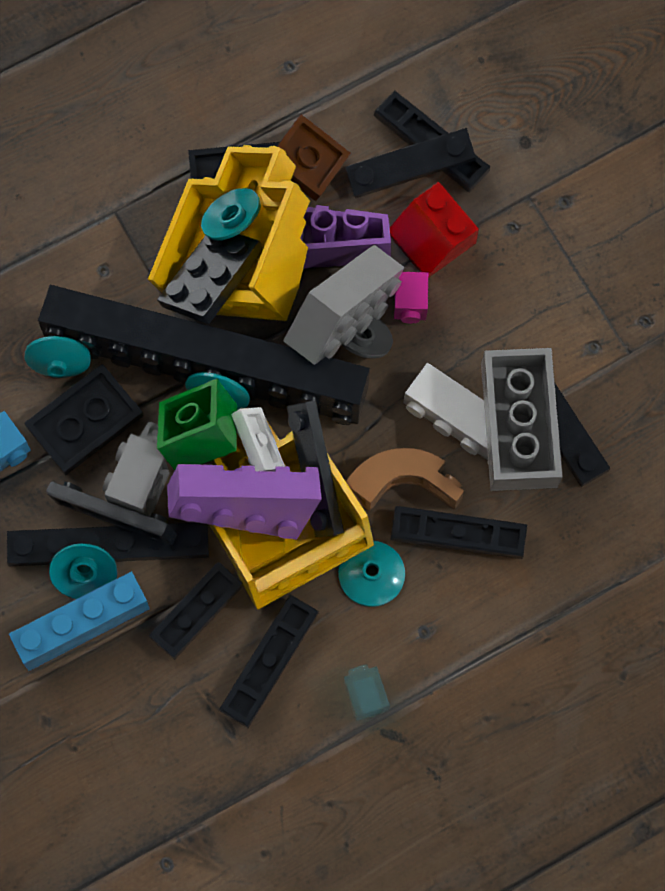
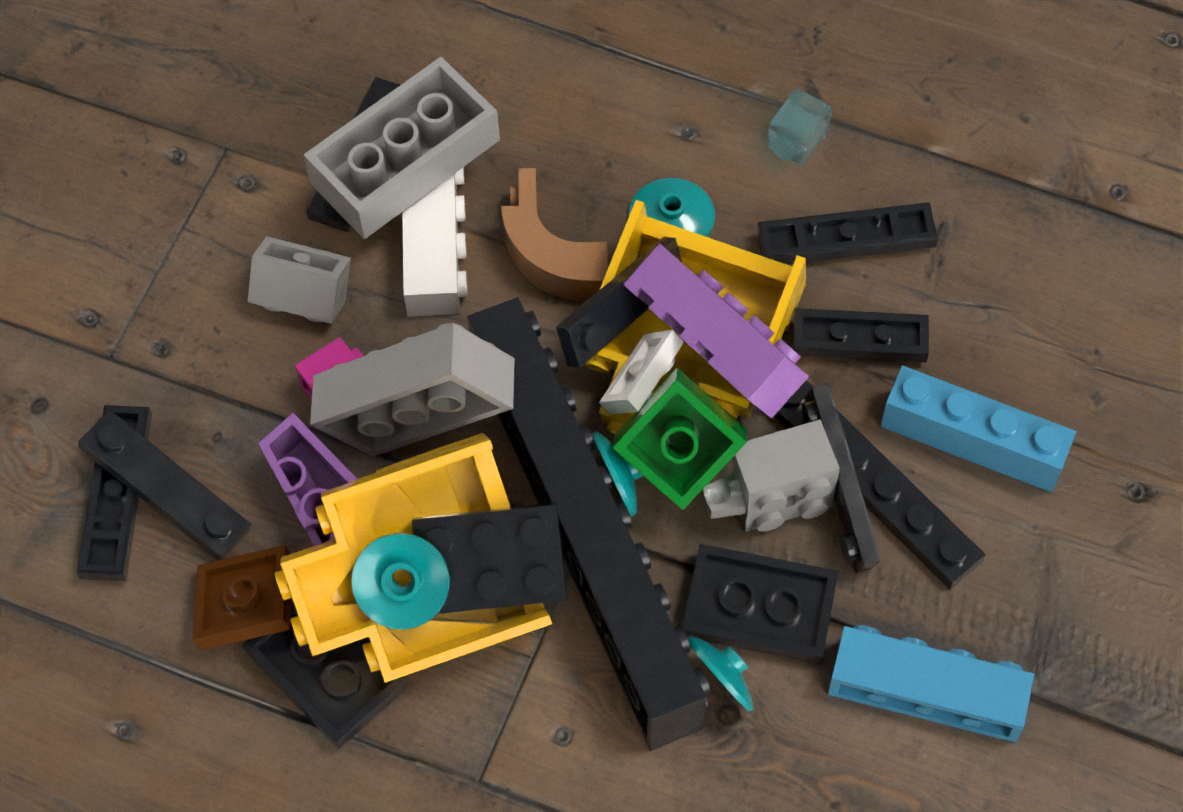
camera: 125 degrees left, 10 degrees down
(78, 580) = (924, 464): teal dish -> none
(433, 230) = (230, 407): red slope -> none
(458, 532) = (562, 162): black plate -> none
(489, 318) = (298, 280): none -> light grey brick

